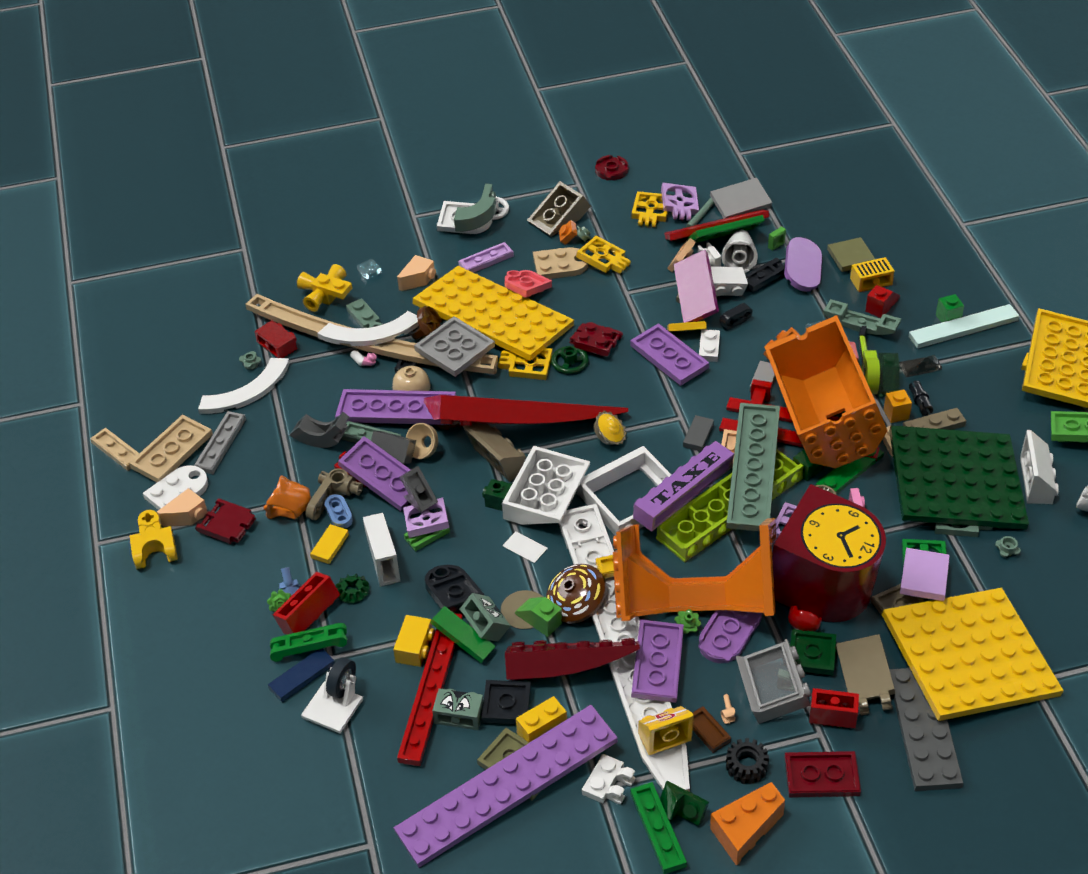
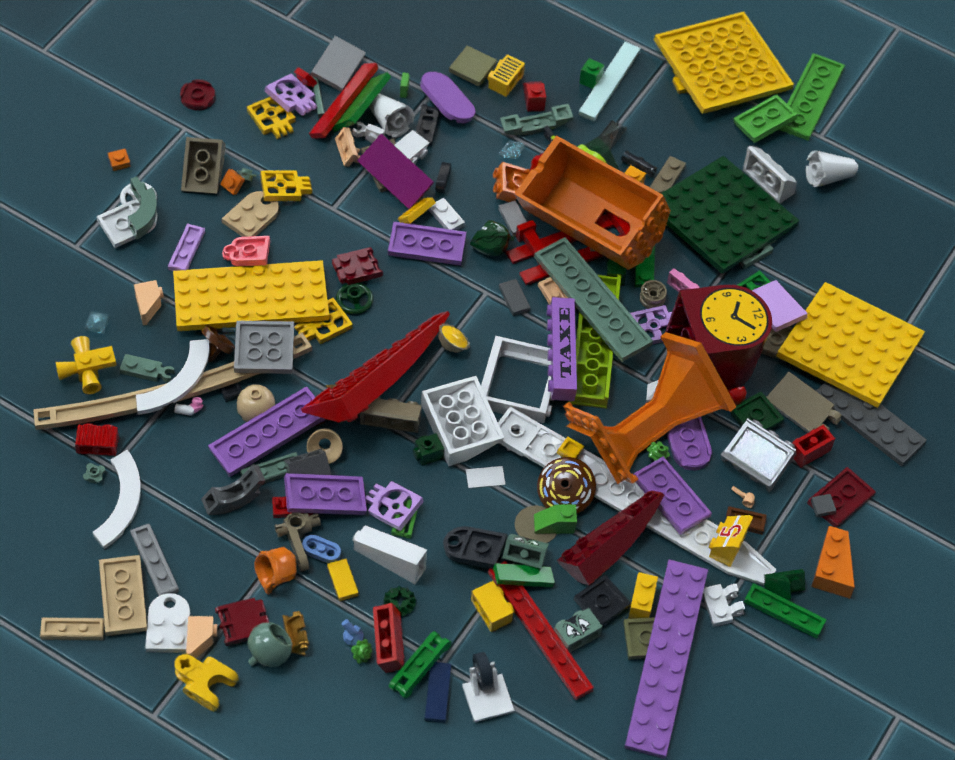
camera: 50 degrees left, 10 degrees up
(217, 546) = (267, 646): none -> sand green piece
(249, 555) = (293, 627): none -> pearl gold hinge
(418, 489) = (373, 488): dark grey slope -> none
(506, 178) = (119, 159): none -> orange plate
(702, 194) = (305, 78): none -> red tile
(723, 377) = (492, 239): none -> dark green helmet
(747, 772) = (796, 514): black tyre -> none
(791, 765) = (823, 505): none -> dark grey tile
(1008, 546) = (800, 247): sand green plate -> none

